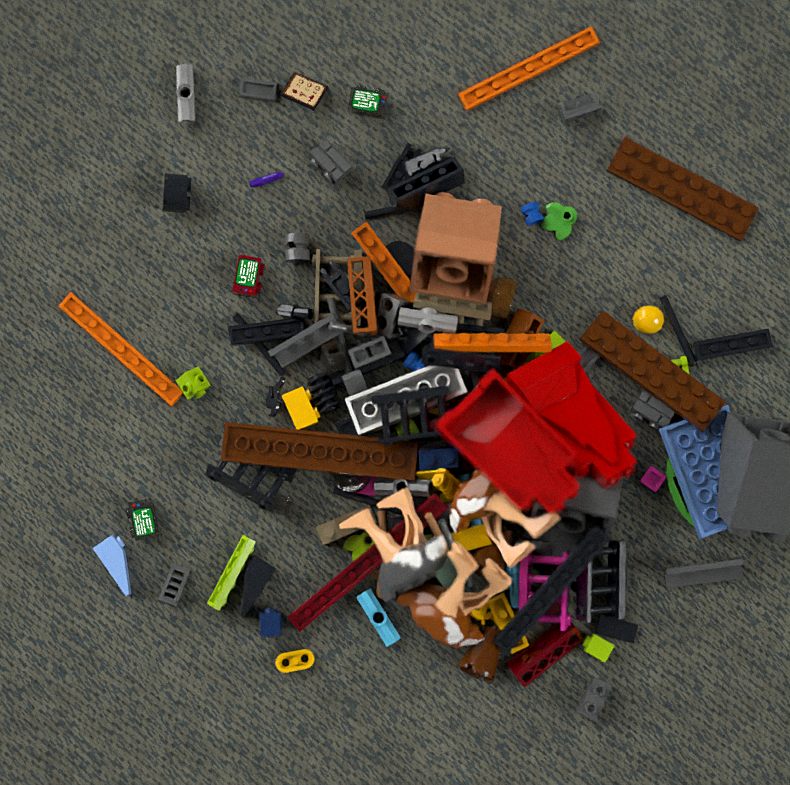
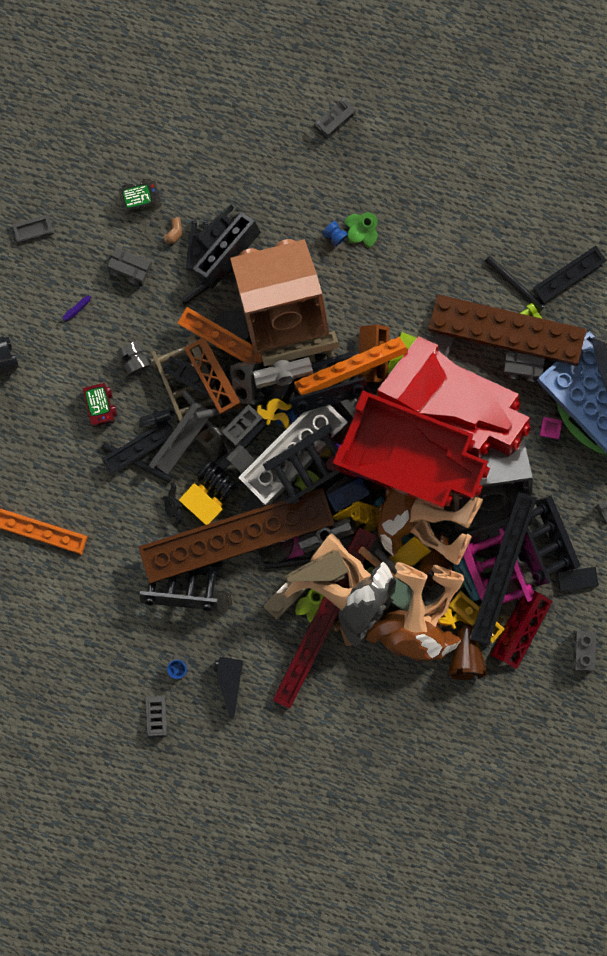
camera: 20 degrees left, 0 degrees up
(114, 558) = (90, 716): light blue slope -> none
(143, 519) = (102, 669): brick -> none
(193, 383) = (92, 524): lime brick -> none
(212, 550) = (174, 668): none -> blue wheel
(228, 578) = (203, 682): lime plate -> none
(271, 623) = (261, 711): dark blue brick -> none
(295, 661) = (296, 735): yellow plate -> none
(304, 91) = (76, 212): piece -> none
(371, 606) = (367, 671): medium azure piece -> none
(385, 517) = (324, 568): none -> dark tan slope
(387, 149) = (175, 233): none -> medium nougat arm
(404, 347) = (272, 406): none -> yellow piece
(502, 298) = (342, 322): clear orange panel -> none
(529, 68) = (273, 102): orange tile -> none
(597, 647) = (567, 603): lime brick -> none
(648, 319) = (483, 285): yellow hair -> none
(682, 189) = (462, 152): reddish brown plate -> none

